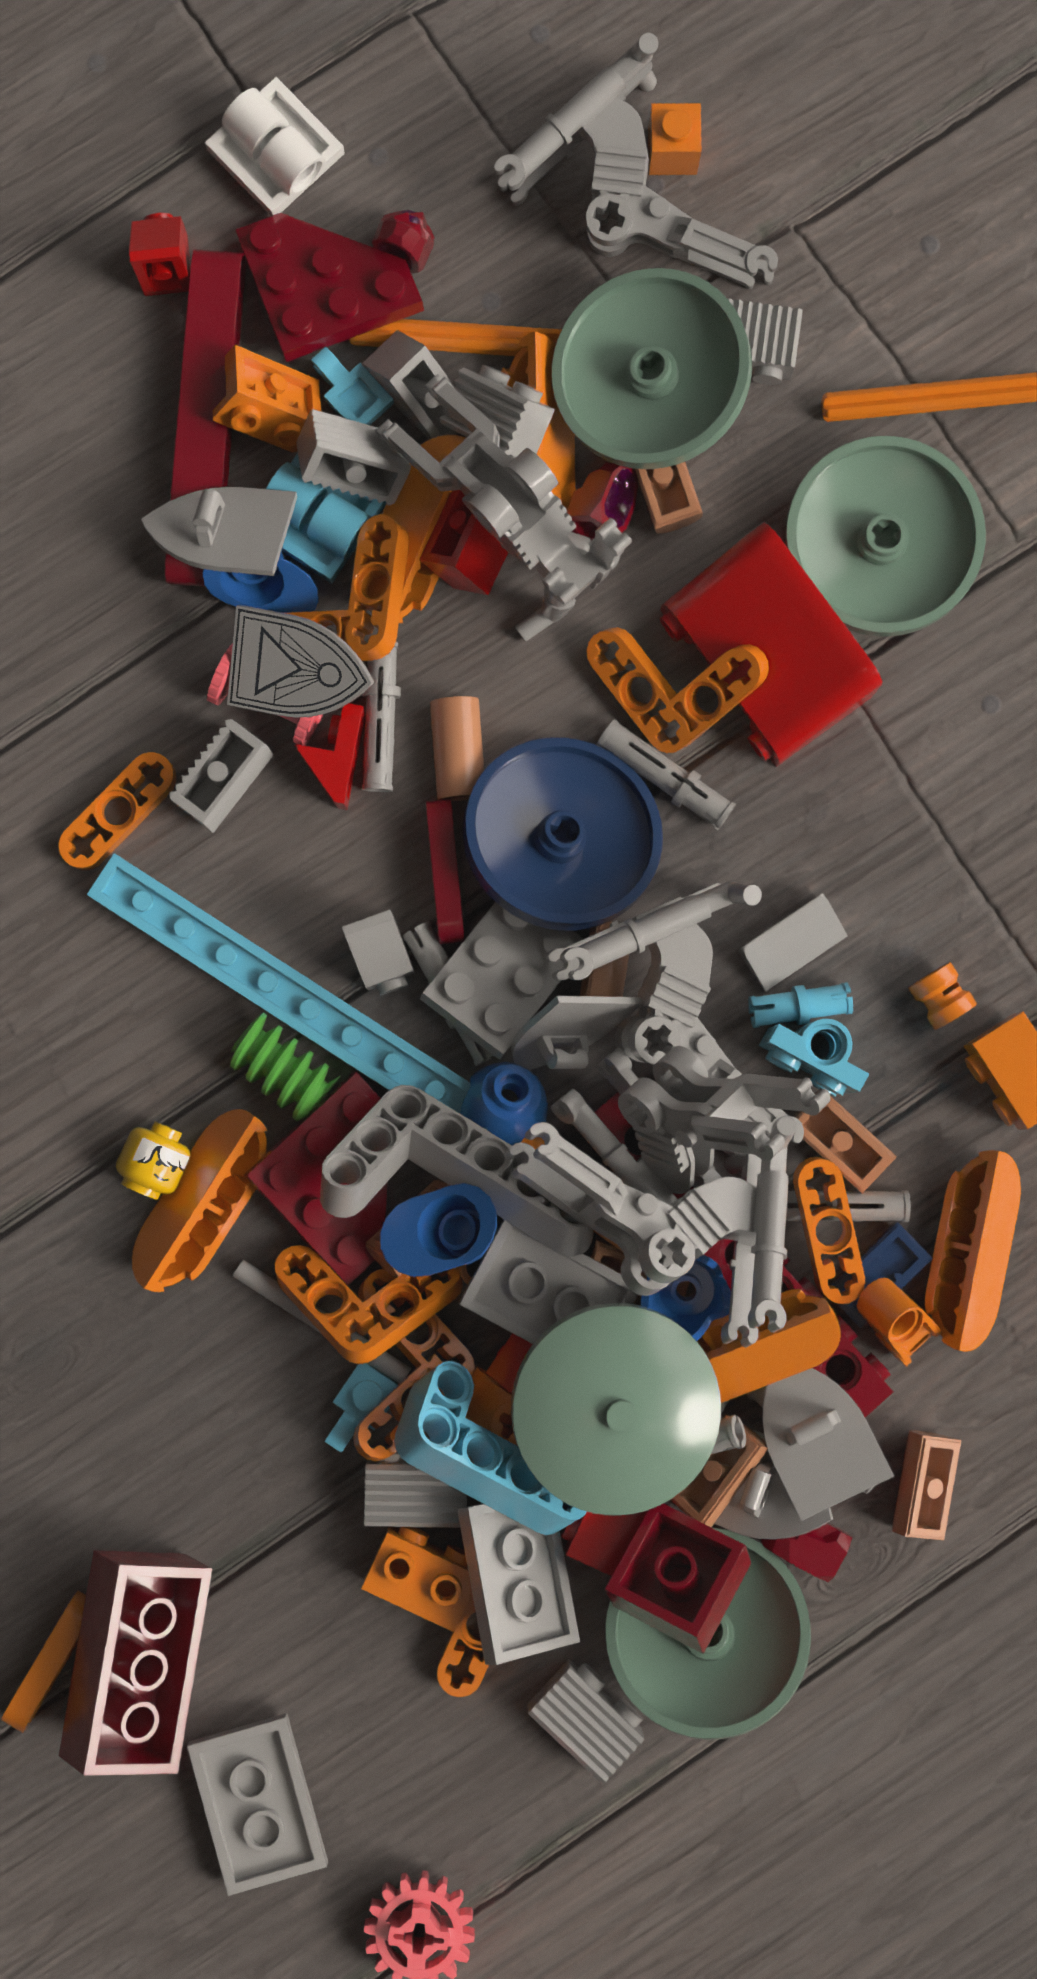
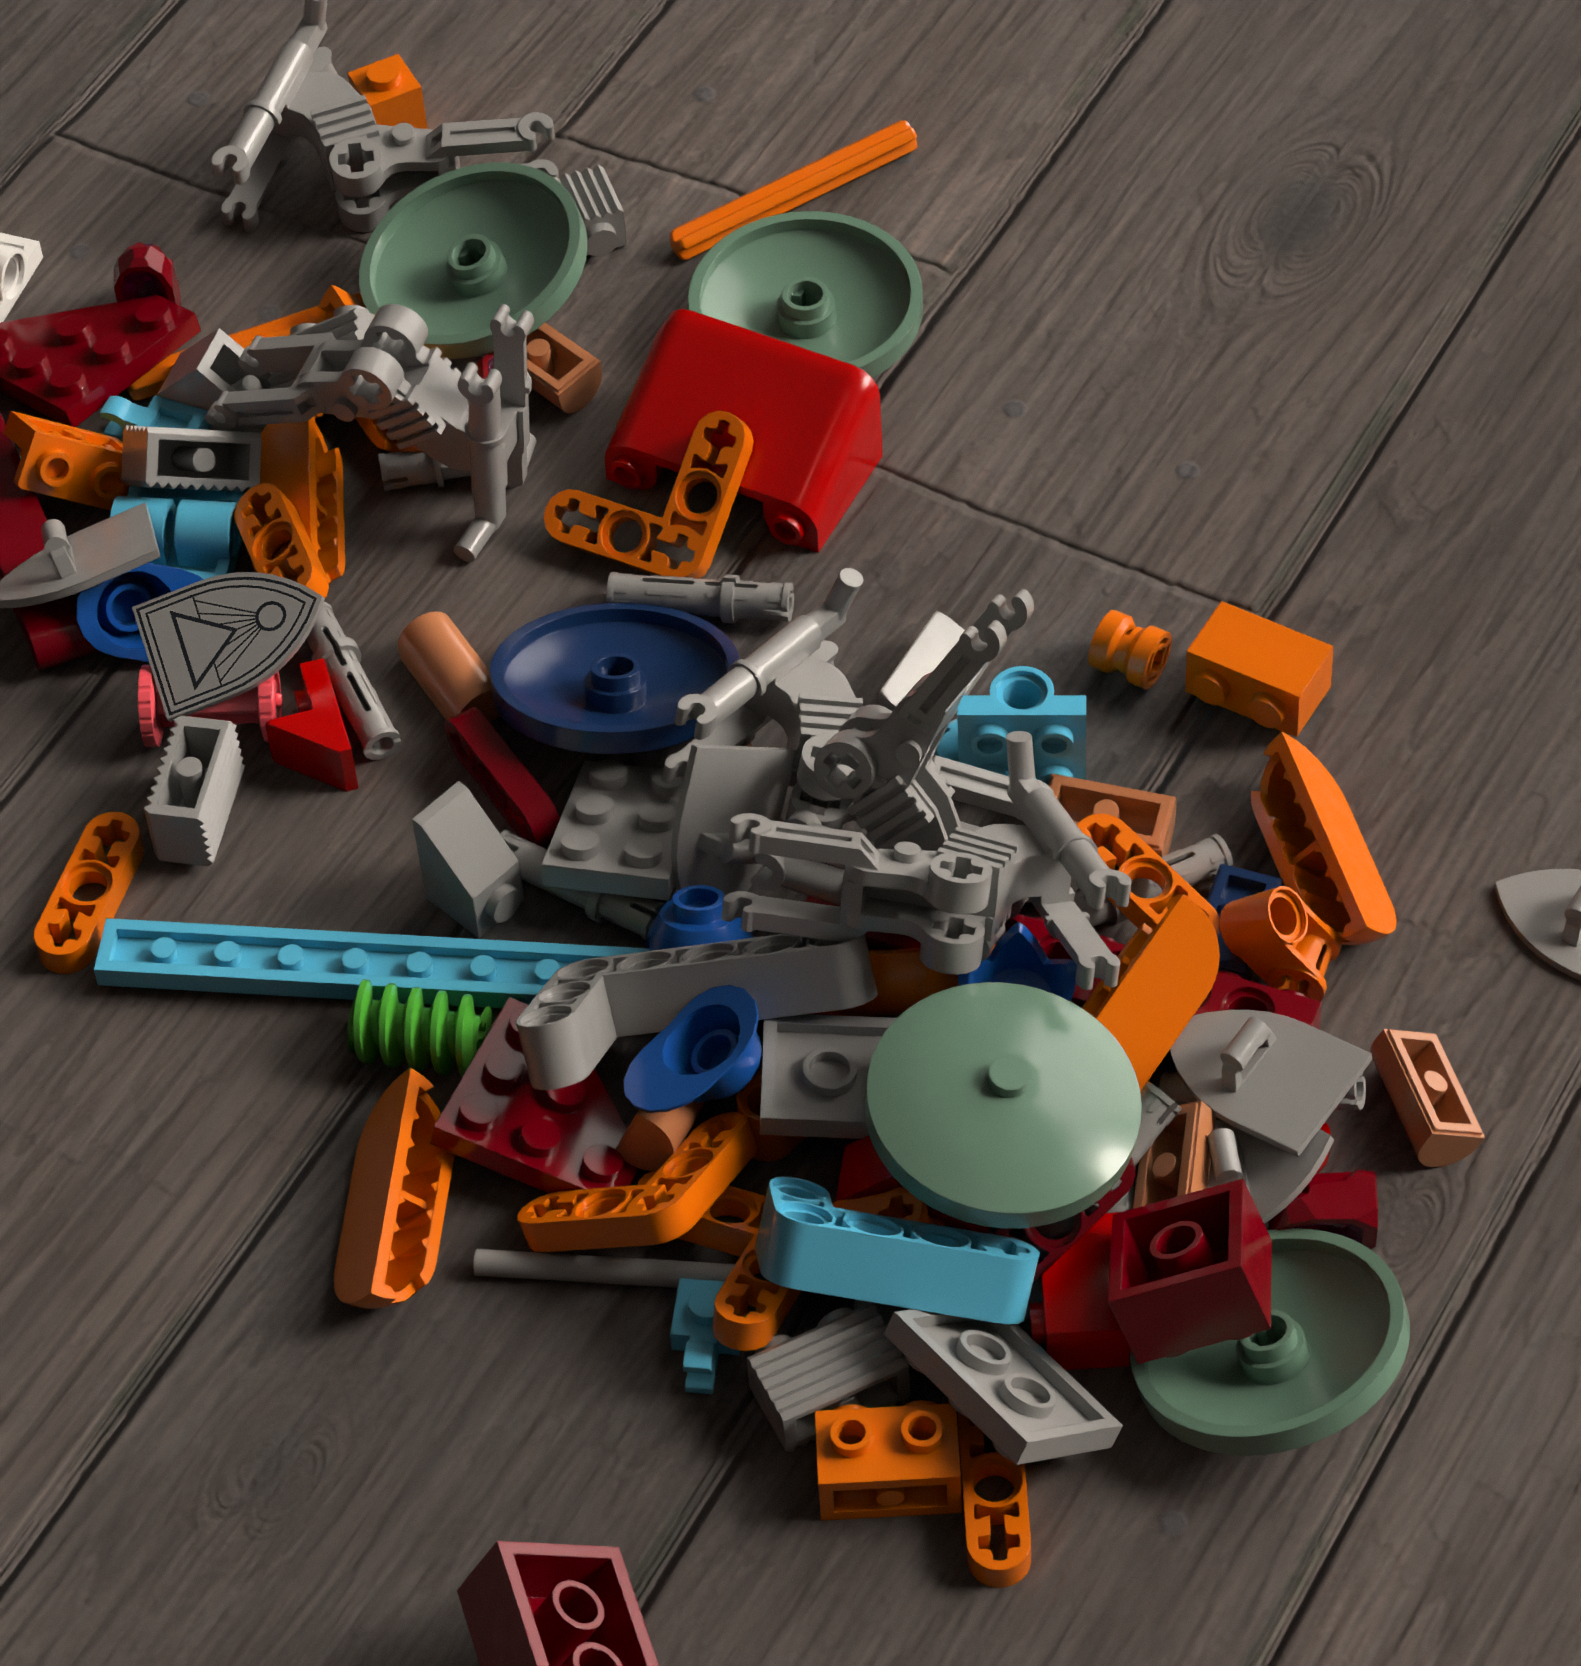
camera: 20 degrees left, 35 degrees down
(153, 1160) = (312, 1184): yellow head -> none
(463, 549) = (360, 482): red slope -> none
(587, 1720) = (1185, 1517): light grey brick -> none

